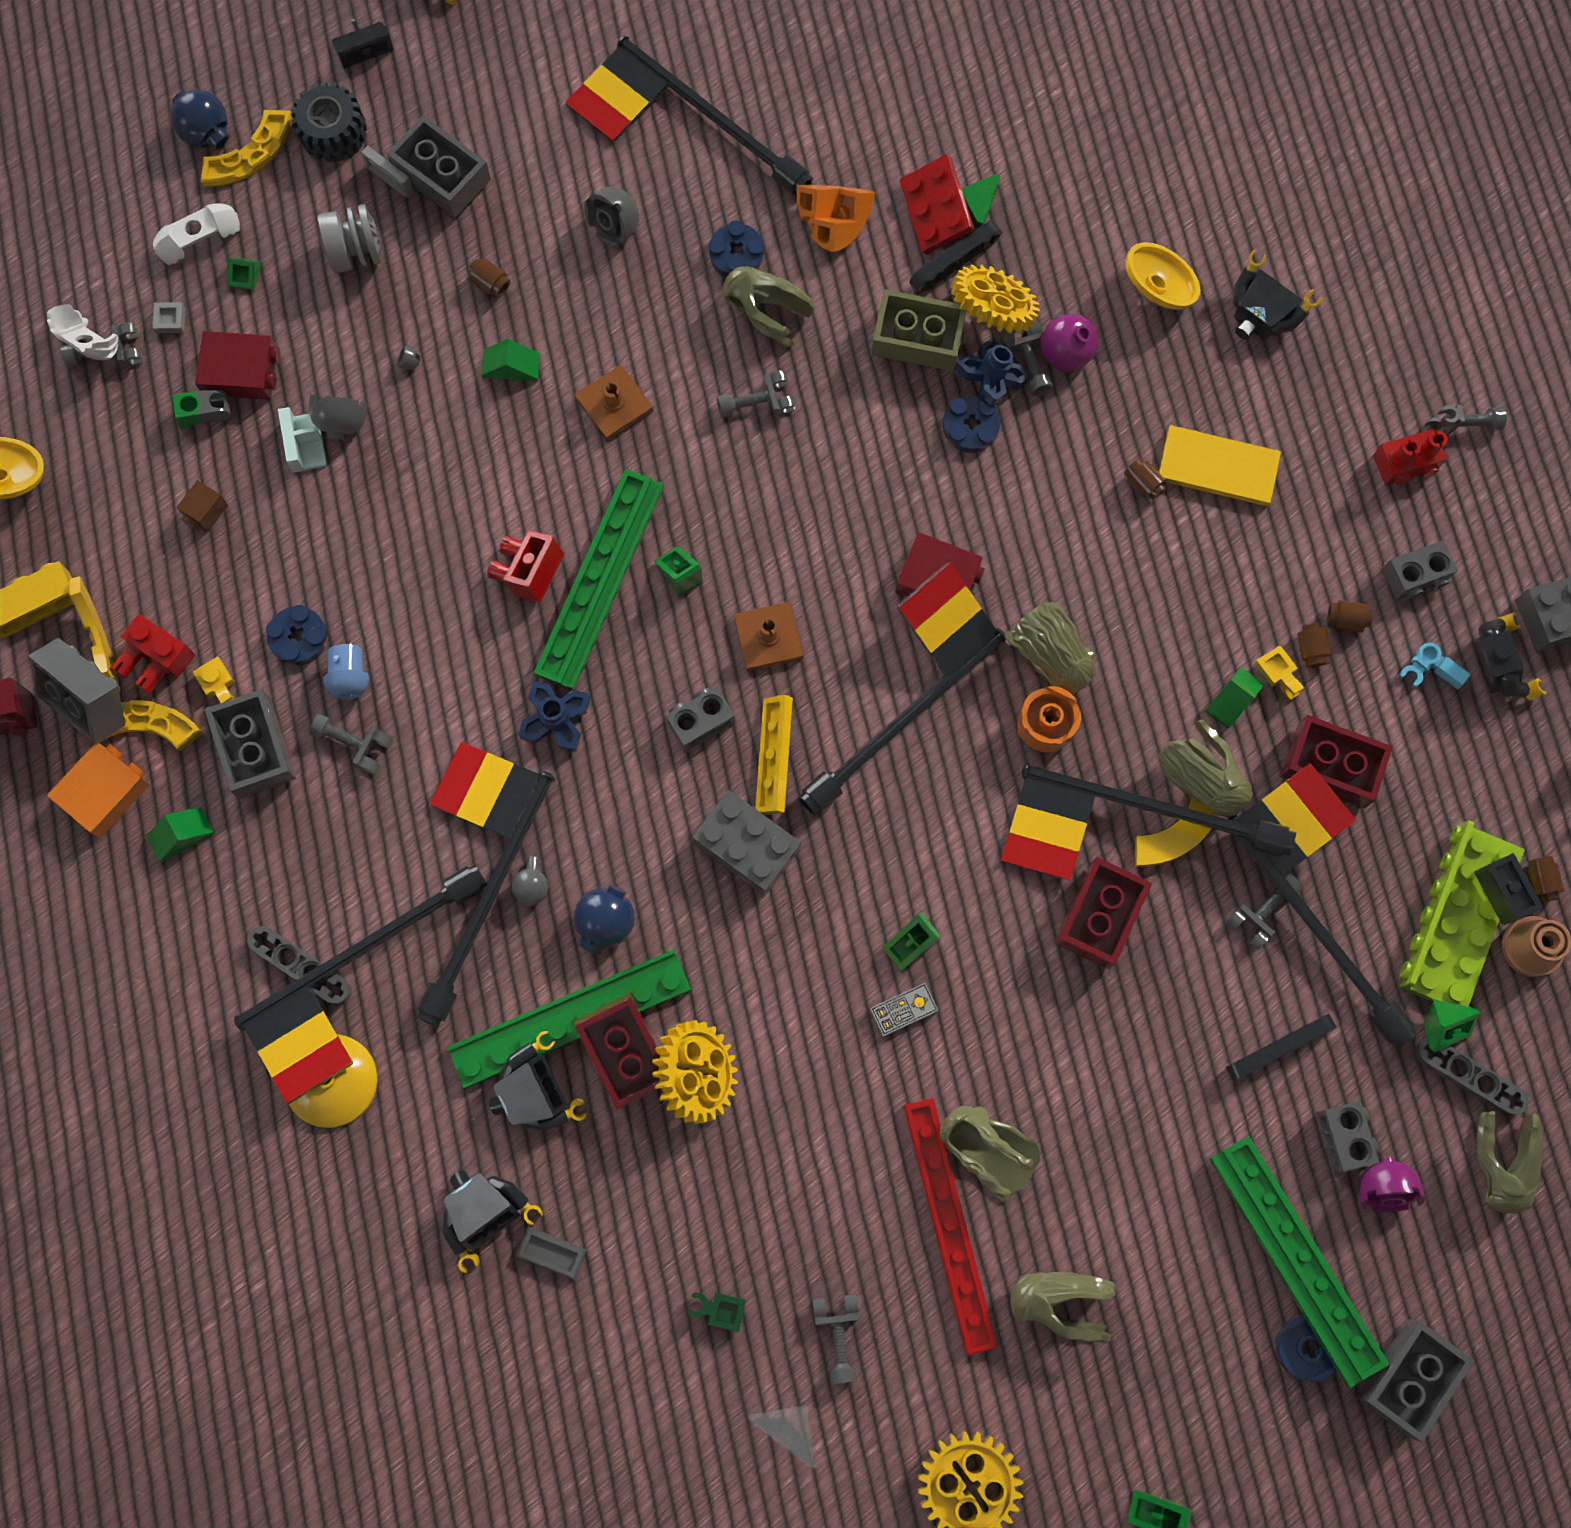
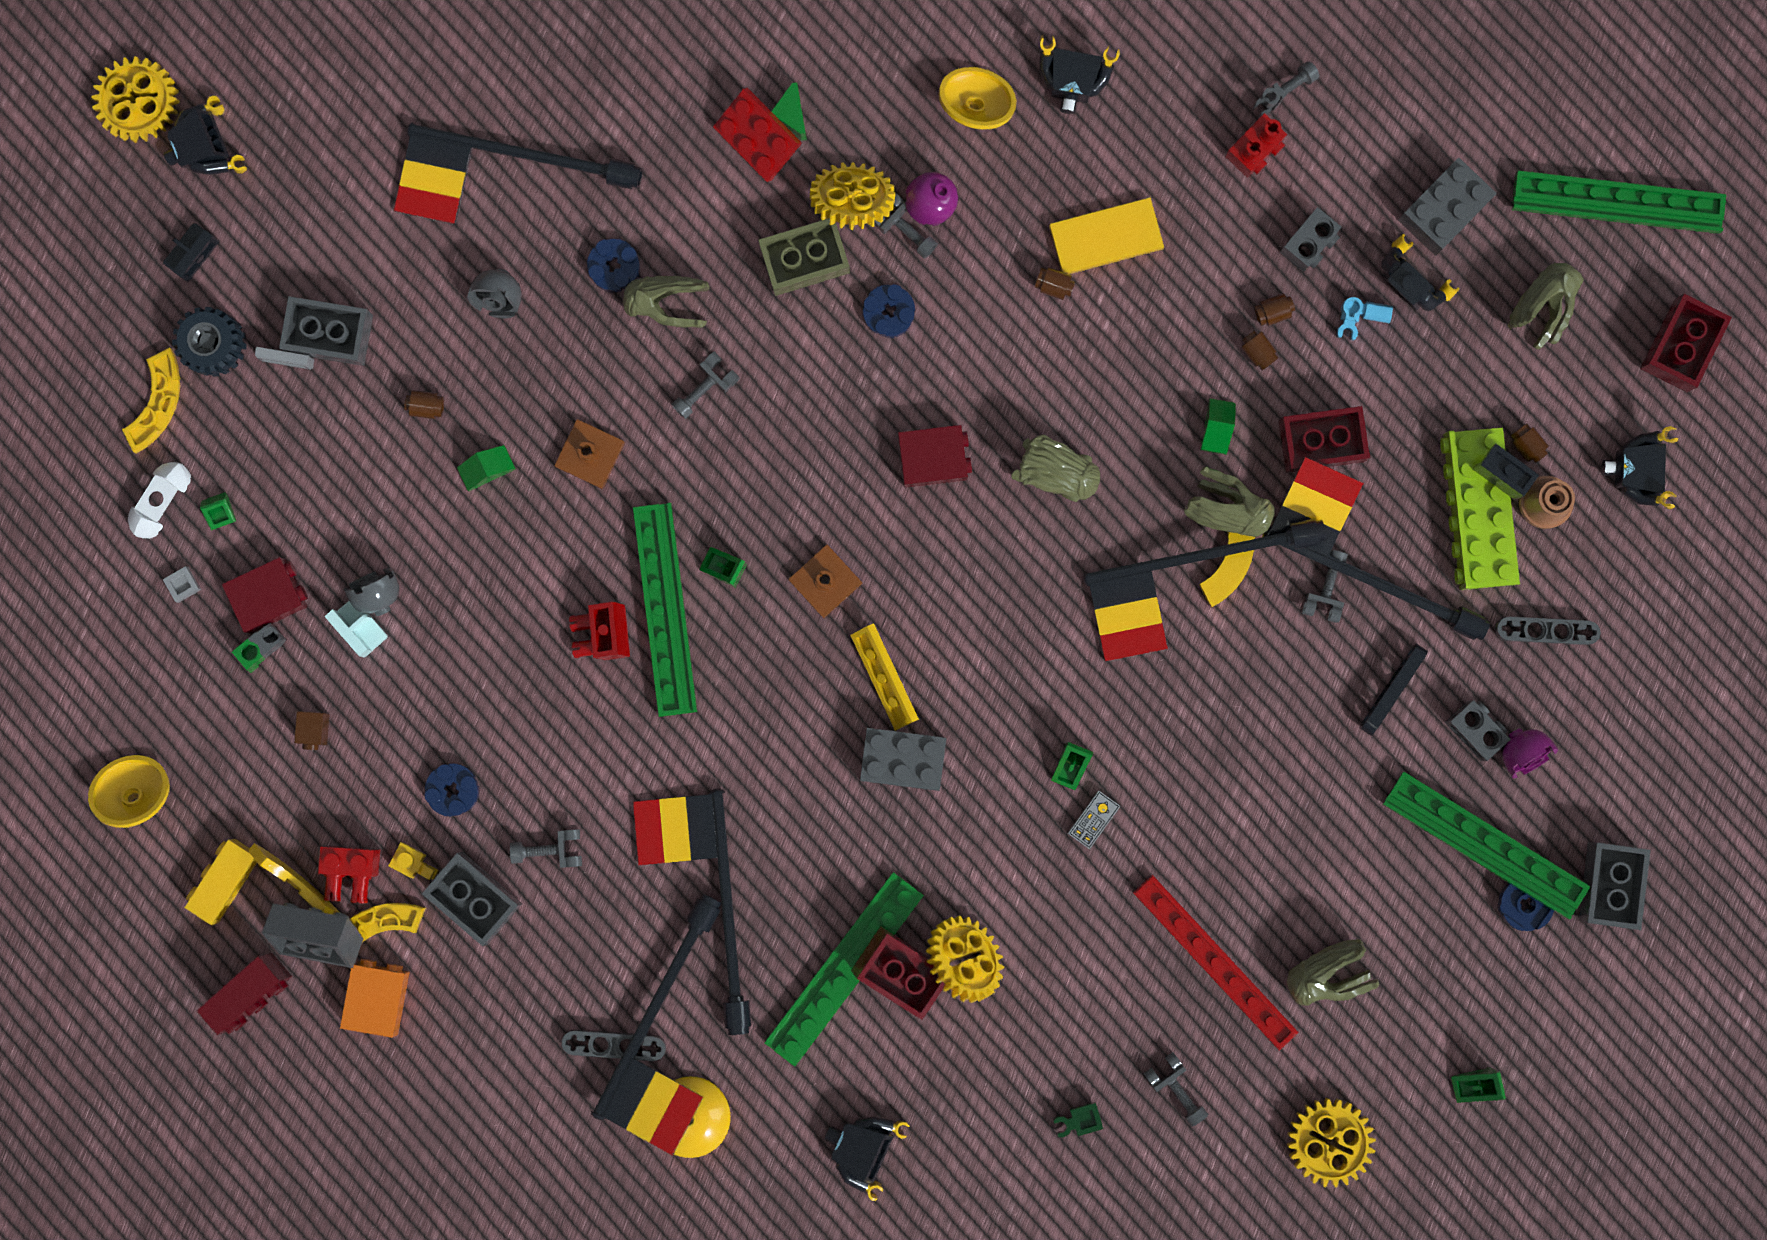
camera: 25 degrees left, 10 degrees up
(70, 327) = (107, 639): white piece -> none
(126, 357) = (125, 661): dark grey bar -> none
(179, 832) = (458, 996): green slope -> none
(199, 119) = (99, 399): dark blue brick -> none
(345, 672) = (511, 800): medium blue piece -> none
(350, 238) = (293, 437): light grey wheel -> none
(408, 358) = (400, 511): dark grey hinge -> none
(530, 884) = (754, 885): dark grey piece -> none
(530, 1091) = (848, 1042): black torso -> none
(541, 724) = (682, 734): dark blue plant -> none
(551, 1253) = (931, 1149): dark grey tile -> none
(603, 918) = (827, 880): dark blue brick -> none
(705, 725) = (816, 682): dark grey brick -> none
(790, 1429) = (1177, 1175): clear tile -> none
(834, 213) = (676, 188): orange brick -> none
(955, 257) = (798, 172): black beam -> none
(956, 638) = (974, 502): flag -> none
(990, 1149) = (1216, 892): olive hair -> none
(994, 371) = (882, 256): dark blue plant -> none
(1043, 735) = (1093, 518): orange brick -> none
(1103, 913) = (1206, 662): dark red brick -> none
(1278, 668) = (1239, 385): yellow plate -> none
(1448, 1024) = (1510, 601): green slope -> none
(1515, 1189) = (1620, 701): olive hair -> none

